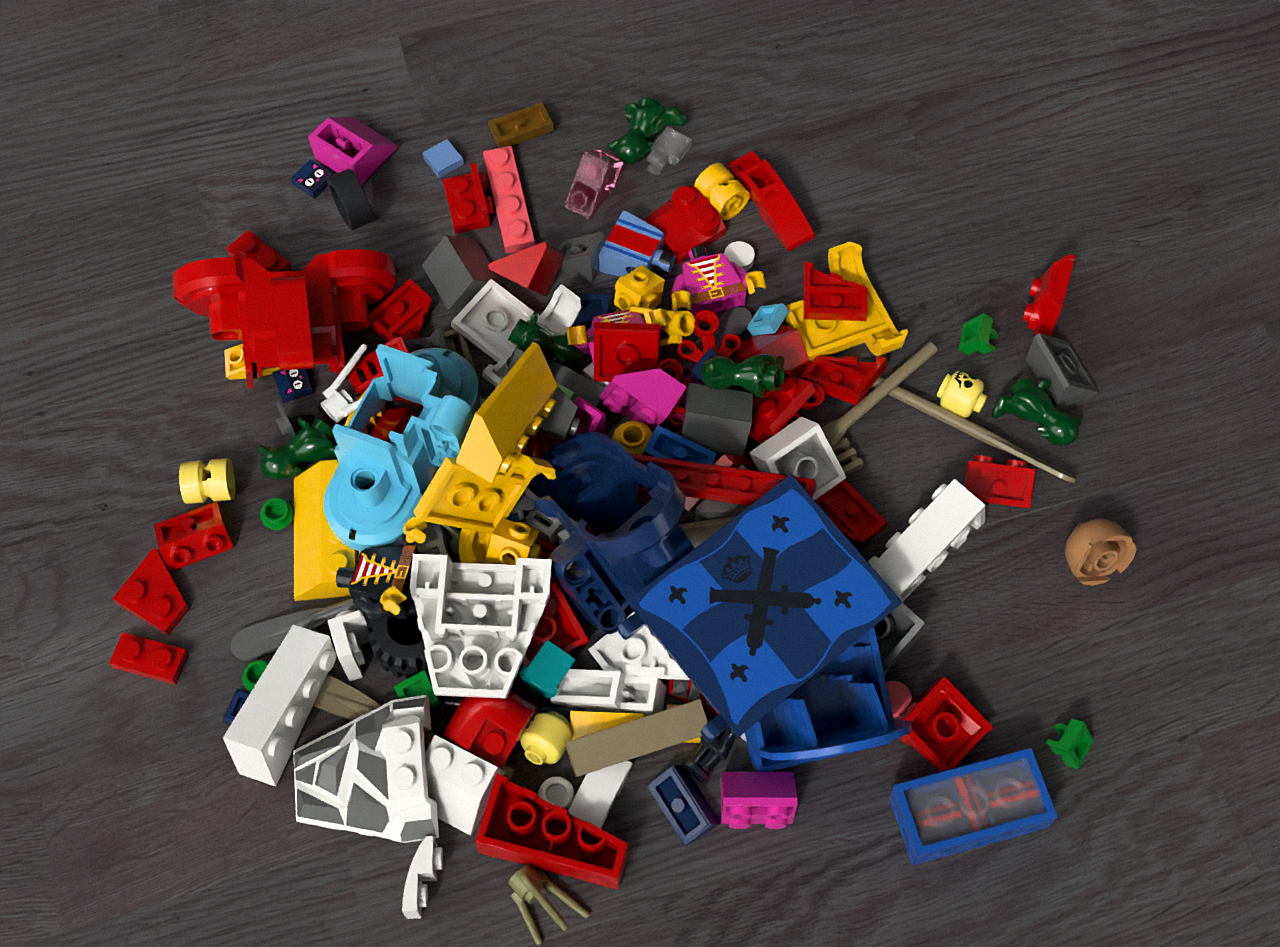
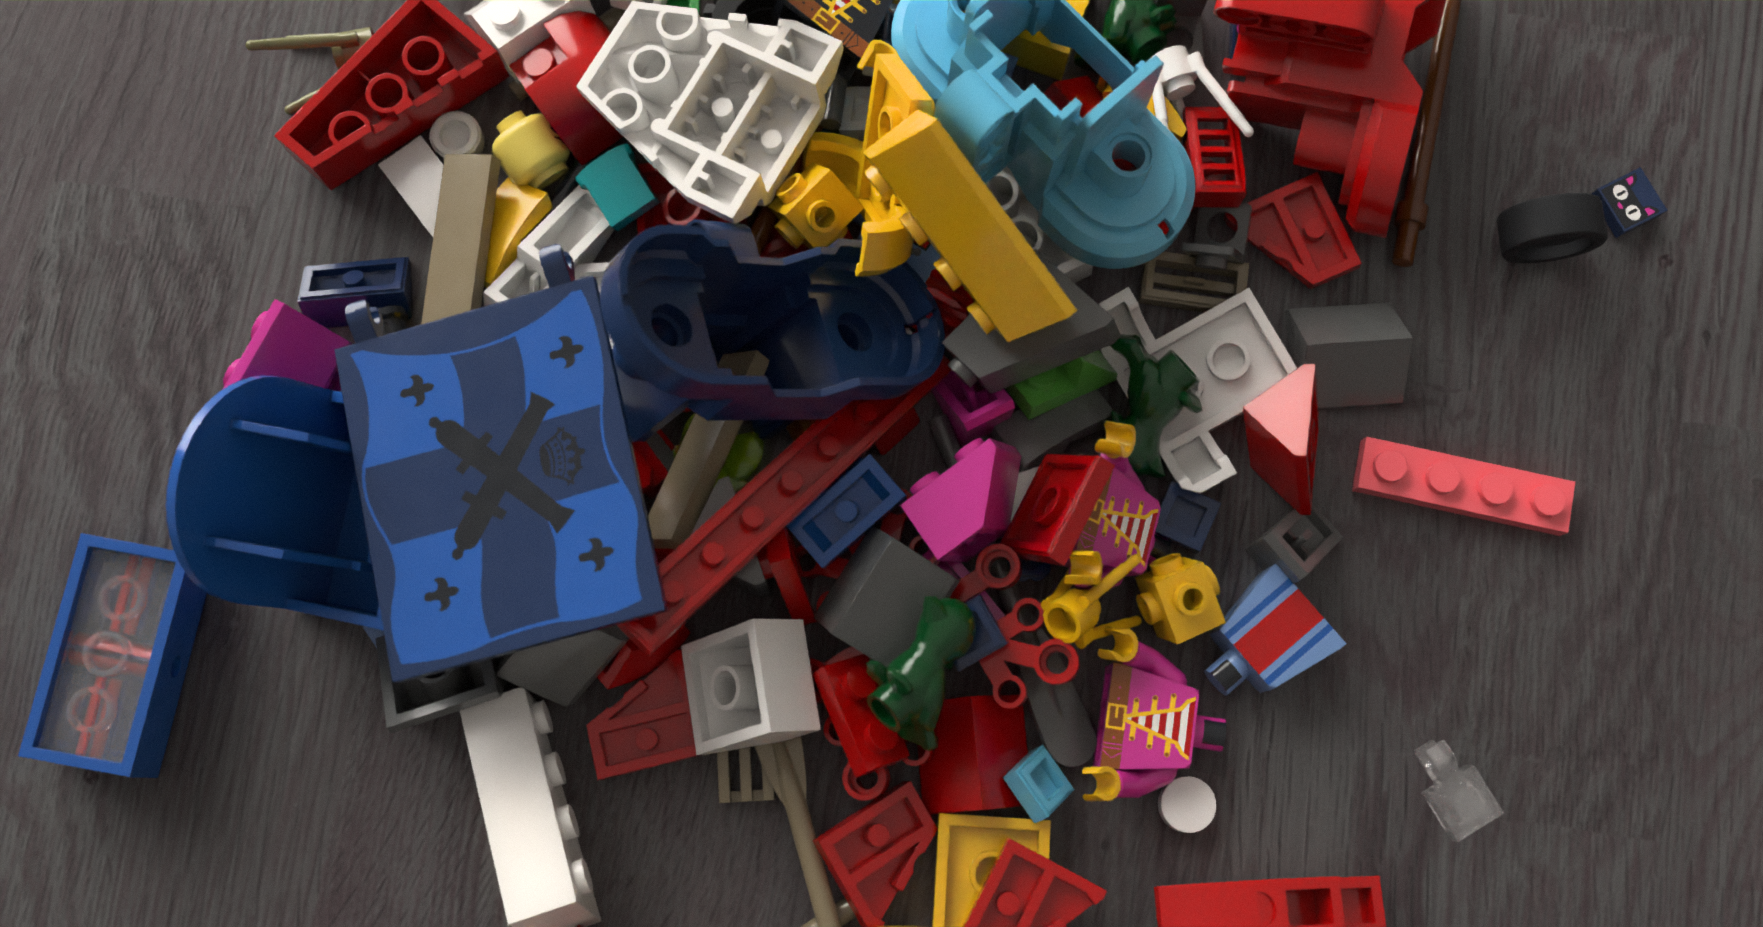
camera: 110 degrees right, 15 degrees up
(251, 246) = (1504, 72): red plate -> none
(350, 144) = (1665, 277): dark pink slope -> none
(443, 158) = (1588, 416): medium blue tile -> none
(467, 201) = (1484, 418): red bracket -> none
(520, 125) = (1604, 566): pearl gold plate -> none
(592, 182) = (1435, 630): clear pink slope -> none
(633, 436) = (911, 445): yellow head -> none
(646, 121) = (1521, 773): dark green animal -> none
(687, 222) = (1289, 745): red slope -> none
(722, 190) = (1341, 828): yellow wheel -> none
(899, 697) = (340, 646): coral tile -> none
(943, 725) = (256, 681): red slope -> none
(1073, 744) = (130, 862): green tile -> none

